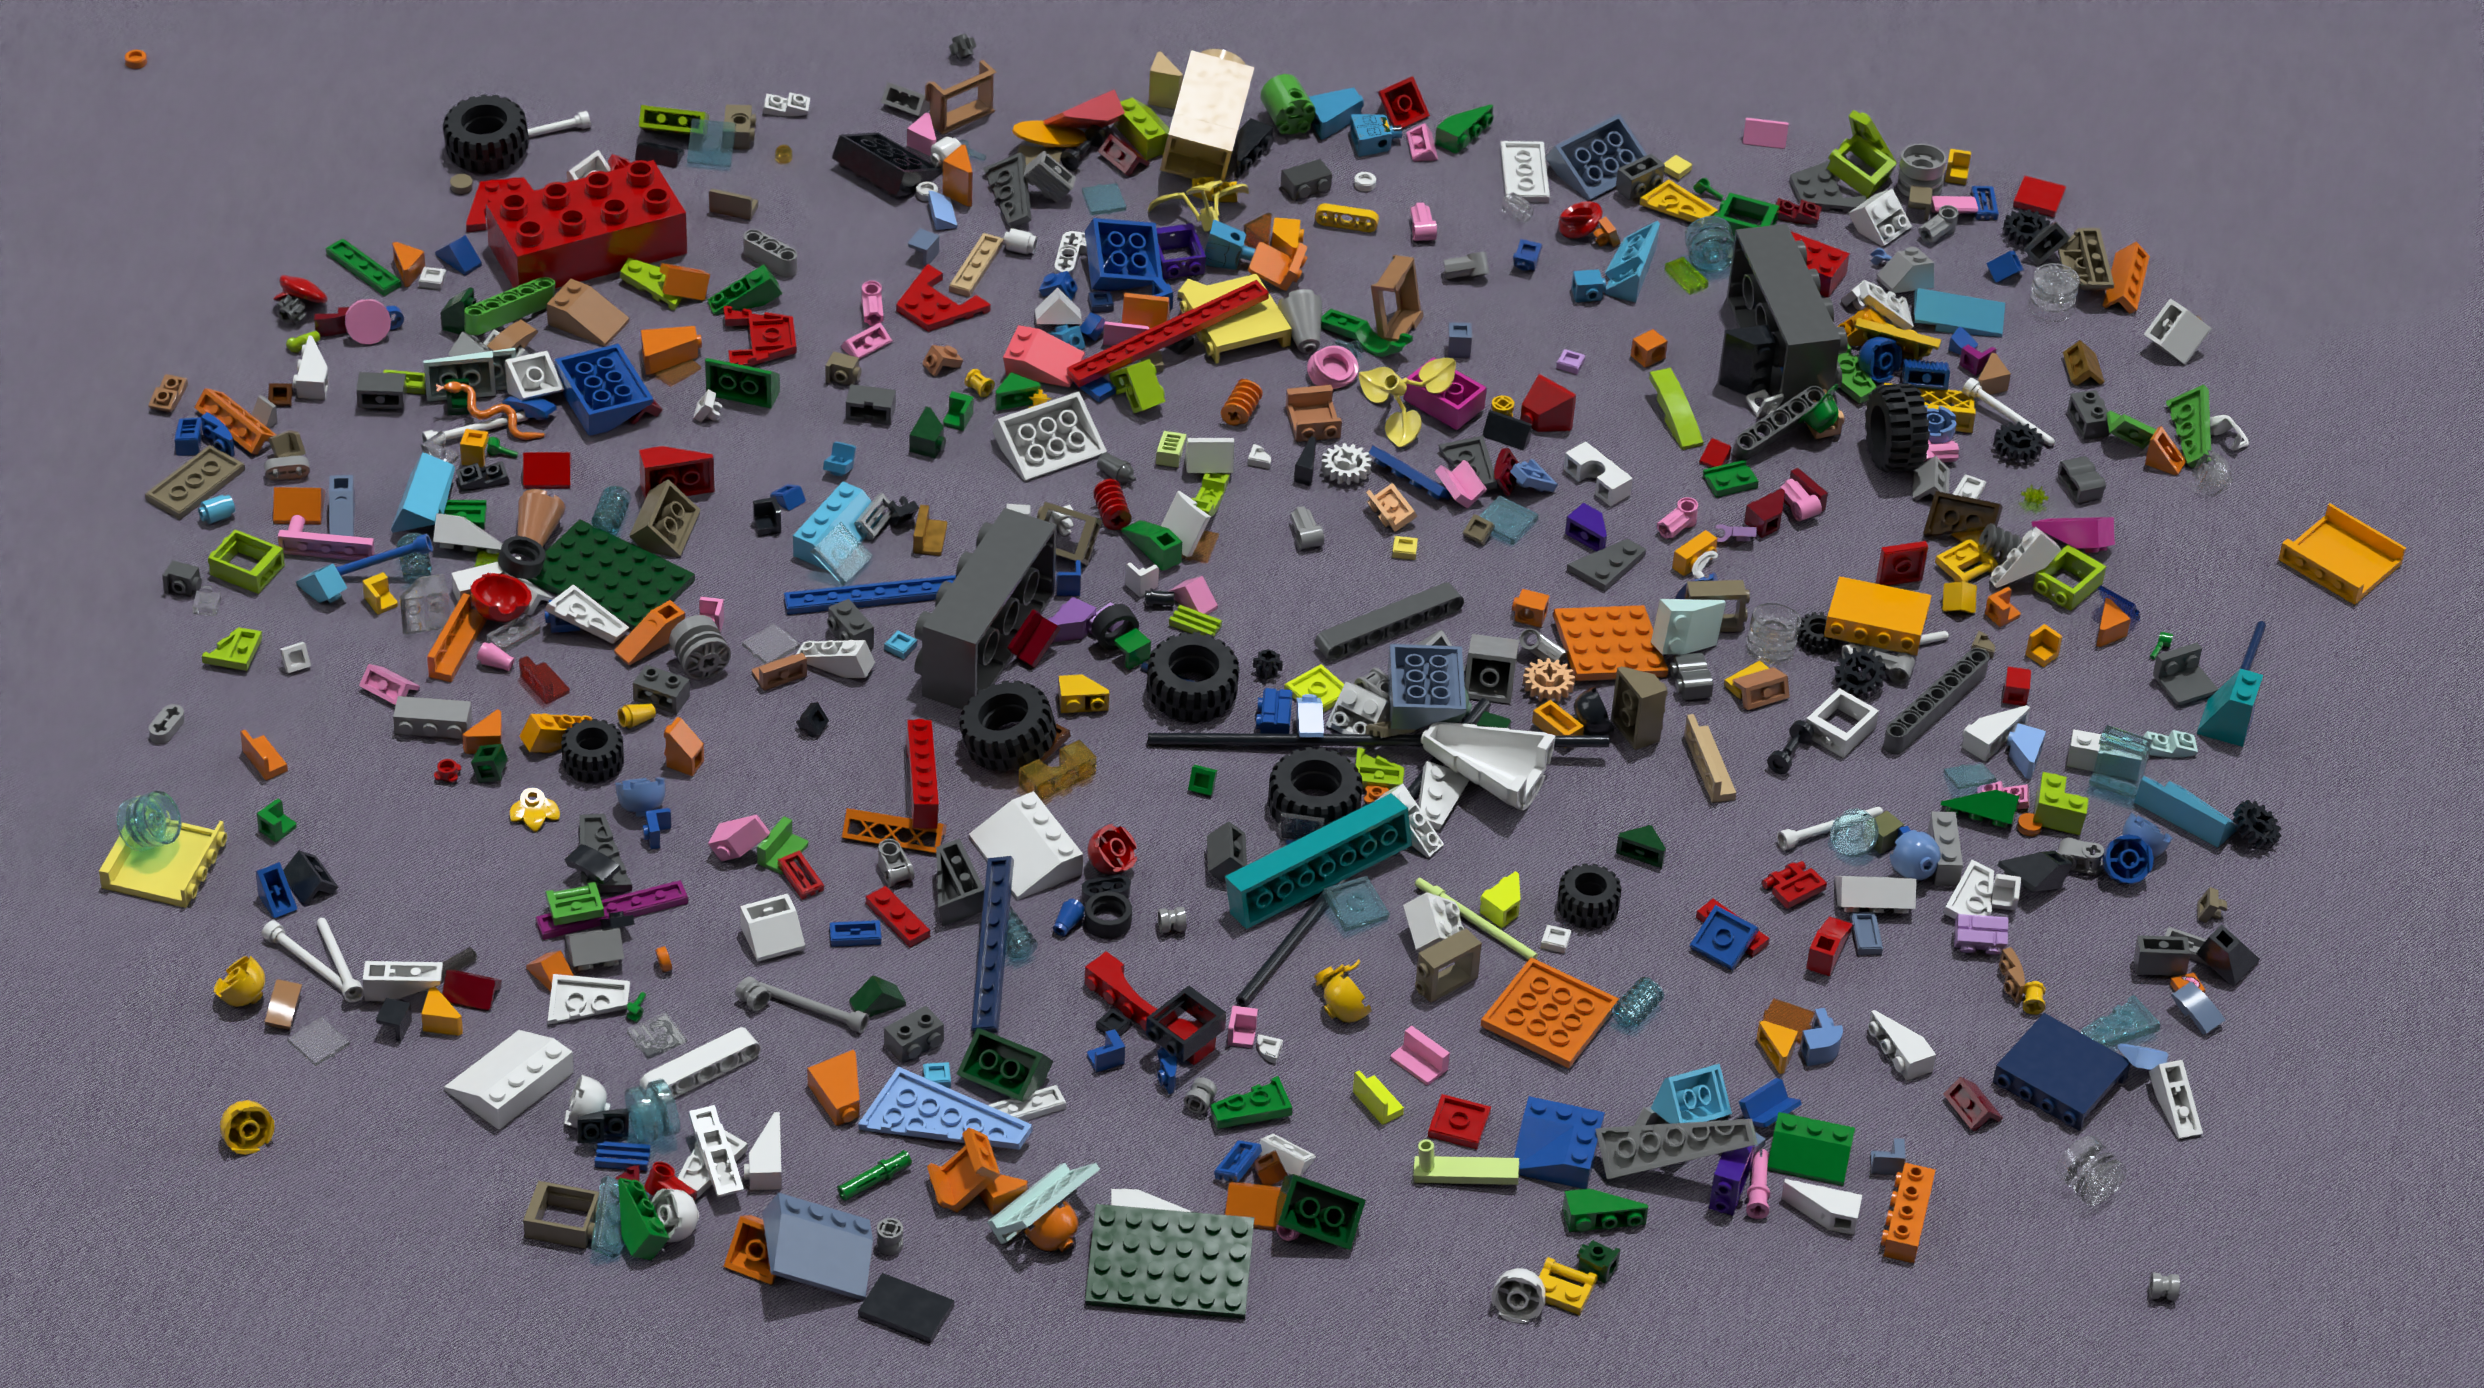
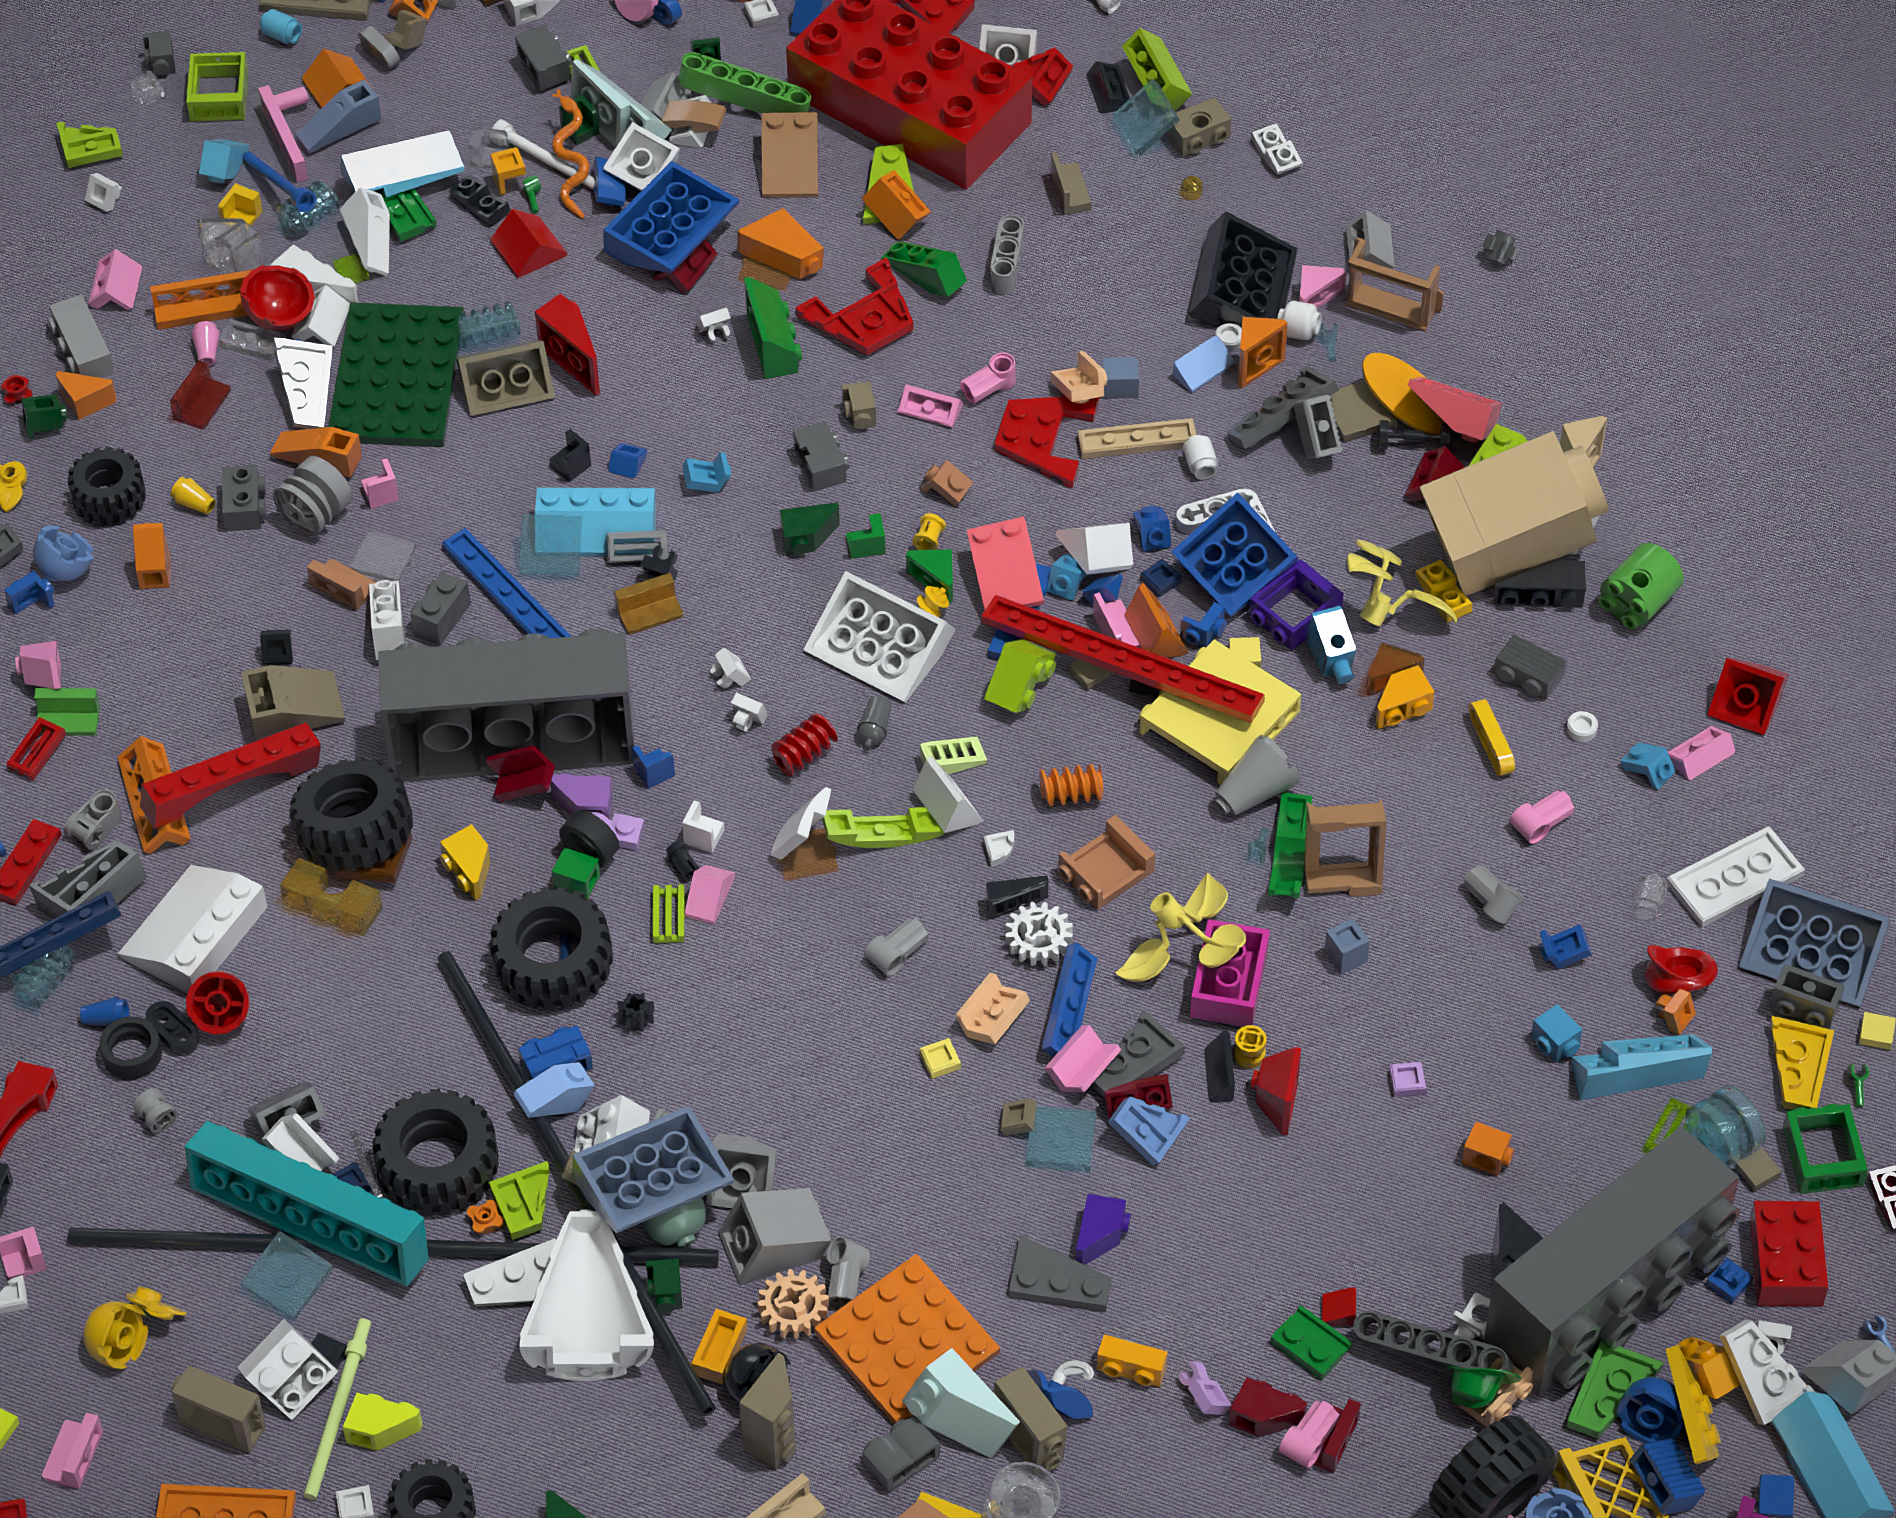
camera: 65 degrees right, 10 degrees up
(526, 547) = (347, 305): black tyre -> none
(538, 515) = (421, 274): nougat cone -> none
(545, 731) = (113, 432): light orange slope -> none
(869, 732) = (289, 697): none -> dark tan slope
(914, 260) = (1081, 382): none -> light nougat bracket
(1087, 537) = (731, 736): dark tan window -> none
(1104, 199) = (1348, 498): clear light blue piece -> none
(1156, 543) = (766, 812): green slope -> none
(1202, 779) = (401, 1037): green tile -> none
(1261, 844) = (298, 1141): none -> white panel
(1277, 266) = (1342, 706): orange bracket -> none
(1317, 682) = (633, 1076): neon yellow tile -> none
(1333, 367) = (1201, 843): bright pink piece -> none
(1335, 110) = (1680, 636): dark azure slope -> none
(1372, 133) = (1668, 692): dark azure torso -> none
(1389, 621) = (791, 1098): dark grey beam -> none
(1416, 164) = (1650, 761): none -> dark azure bracket
(1422, 833) = (445, 1266): white slope -> none
(1462, 128) = (1757, 776): green slope -> none
(1531, 608) = (910, 1230): orange brick -> none
(1588, 462) = (1200, 1218): white arch -> none
(1676, 409) = (1388, 1226): lime slope -> none
(1682, 517) = (1183, 1315): bright pink piece -> none

